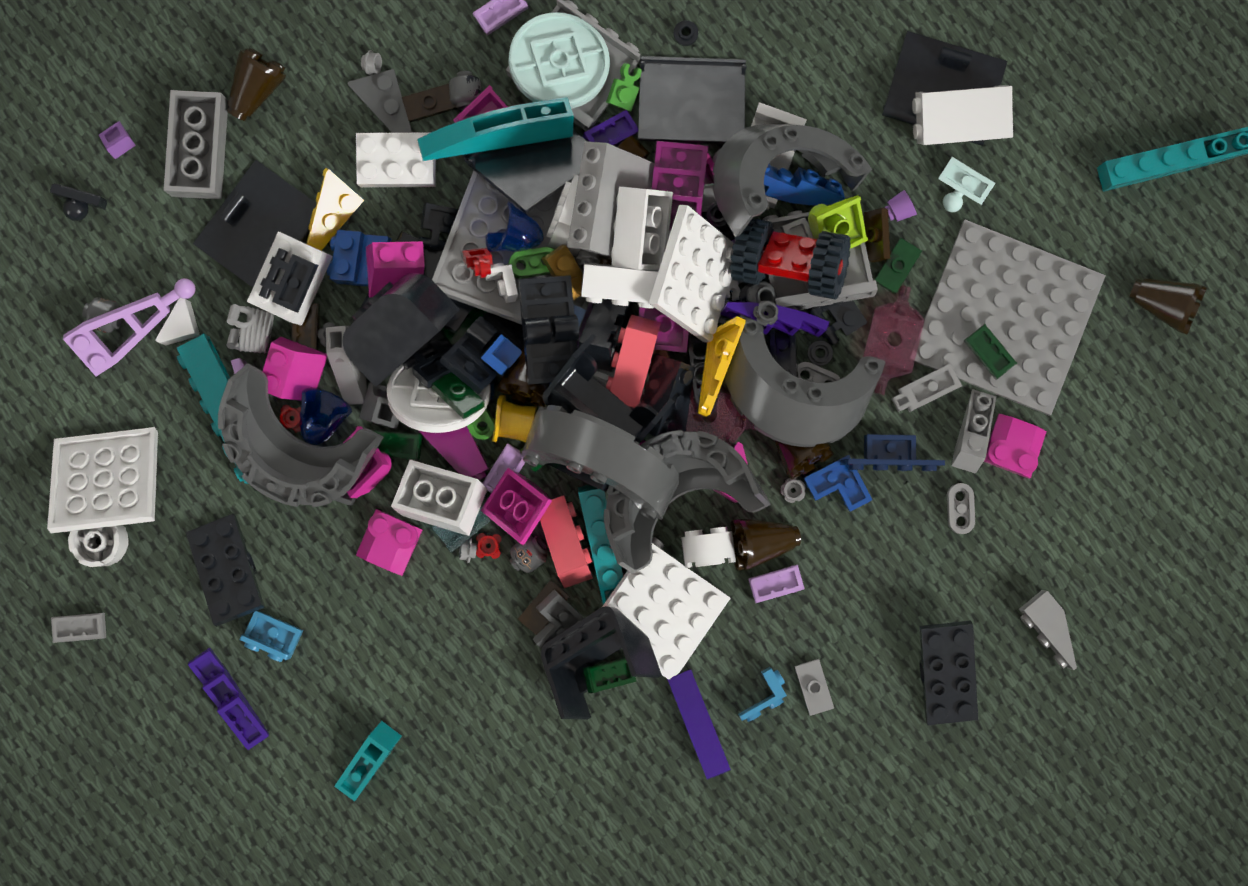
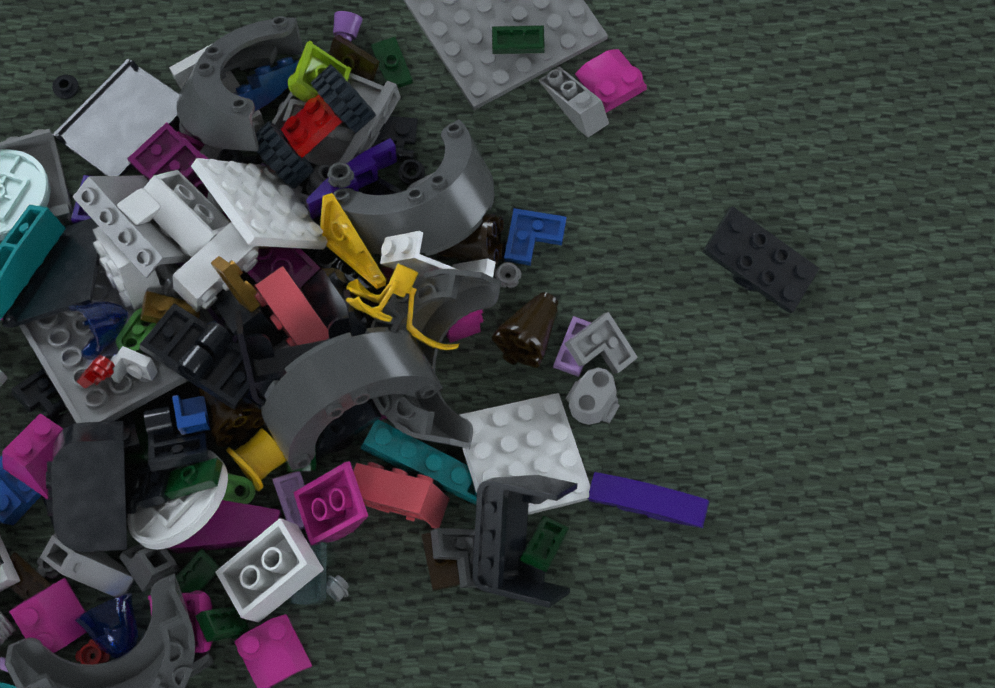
camera: 50 degrees left, 15 degrees down
(377, 493) = (221, 623): none -> dark green plate
(483, 540) = (348, 558): red plate -> none
(530, 555) = (383, 535): dark grey head -> none
(615, 197) = (139, 207): none -> white slope
(617, 308) = (241, 290): none -> pearl gold plate
(623, 91) = (65, 166): bright green plate -> none
(708, 435) = (399, 284): none -> yellow plant
(708, 548) = (499, 374): white brick -> none
(744, 627) = (593, 397): none -> light grey piece
(765, 460) = (406, 251): none -> white panel
(774, 681) = (661, 409): dark azure bracket -> none
(794, 600) = (604, 338): none -> light grey plate
(814, 687) = (690, 381): light grey plate -> none
(891, 450) = (538, 173): dark blue bracket -> none
(899, 319) = (442, 88): clear pink plate -> none
(927, 389) = (509, 110): light grey hinge -> none
(961, 508) = (631, 154): light grey plate -> none
(1051, 624) = (781, 154): light grey slope -> none

